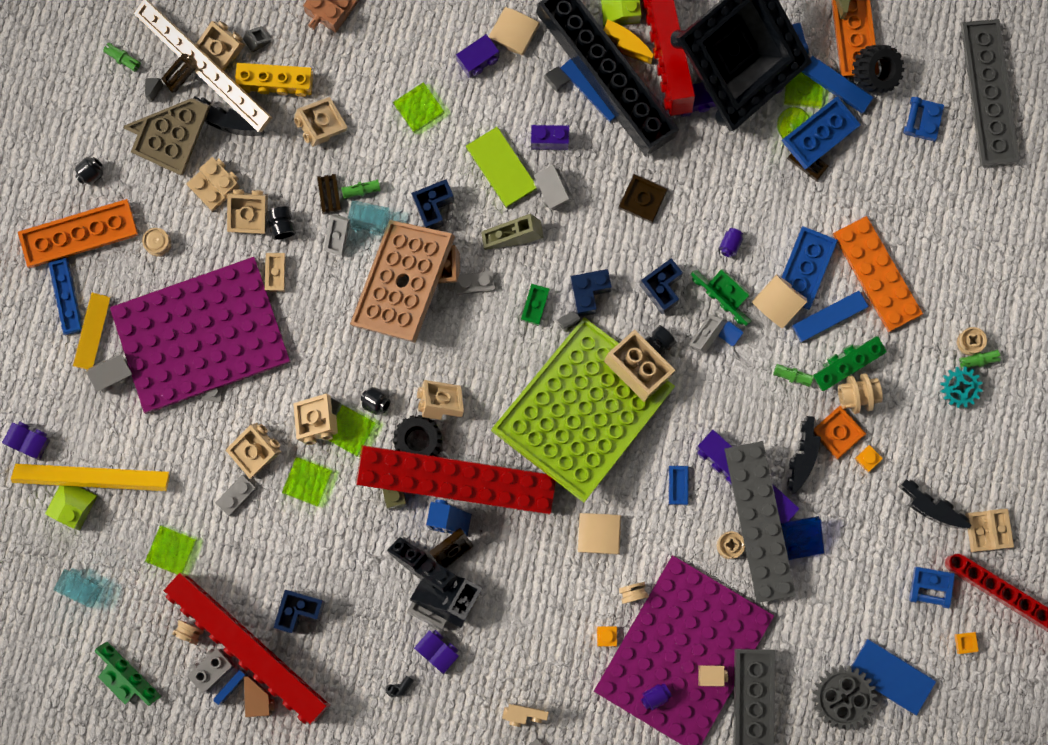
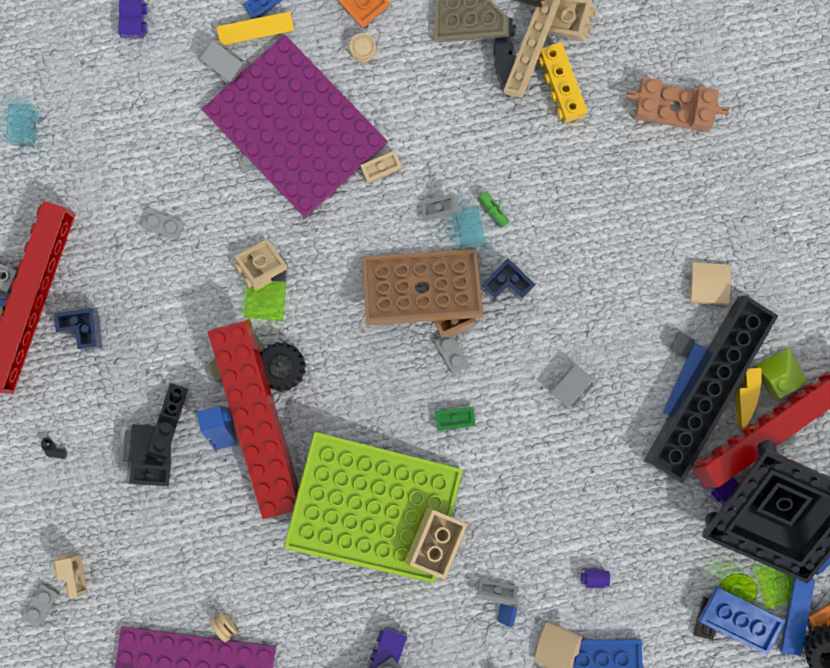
camera: 65 degrees right, 5 degrees up
(71, 506) = (92, 84): lime slope -> none
(90, 477) = (124, 89): yellow tile -> none
(170, 550) = (90, 190): clear neon green tile -> none
(187, 632) = (19, 238): tan wheel -> none
(213, 183) = (439, 73): tan plate -> none
(247, 211) = (426, 115): tan plate -> none
(254, 449) = (209, 222): tan plate -> none
(256, 38) = (594, 49): dark grey slope -> none
(281, 224) = (431, 149): black wheel -> none
(307, 481) = (202, 283): clear neon green tile -> none
(319, 121) = (540, 143): tan plate -> none
(326, 178) = (490, 174): dark brown tile -> none
(375, 401) = (301, 312): black head -> none
(418, 107) = (596, 227): clear neon green tile -> none
(436, 651) = (97, 469): dark purple brick -> none
(440, 399) = (325, 371): tan plate -> none
(451, 548) = (193, 441): dark brown tile -> none
(478, 56) = (670, 261): dark purple brick -> none
(501, 167) = (573, 329): lime tile -> none
(515, 232) = (513, 368): olive slope -> none
(549, 137) = (621, 363): dark purple brick -> none
(569, 321) = (454, 456): dark grey slope -> none
(585, 287) = (489, 458): dark blue brick -> none
(599, 533) = (266, 570): tan slope -> none
(607, 636) = (176, 617): light orange plate -> none
(642, 198) = (601, 475): dark brown tile -> none
(658, 285) = (521, 526): dark blue brick -> none
(662, 338) = (474, 552): black wheel -> none
(678, 485) = (343, 625): blue tile -> none
(726, 291) = (545, 593): green bracket -> none

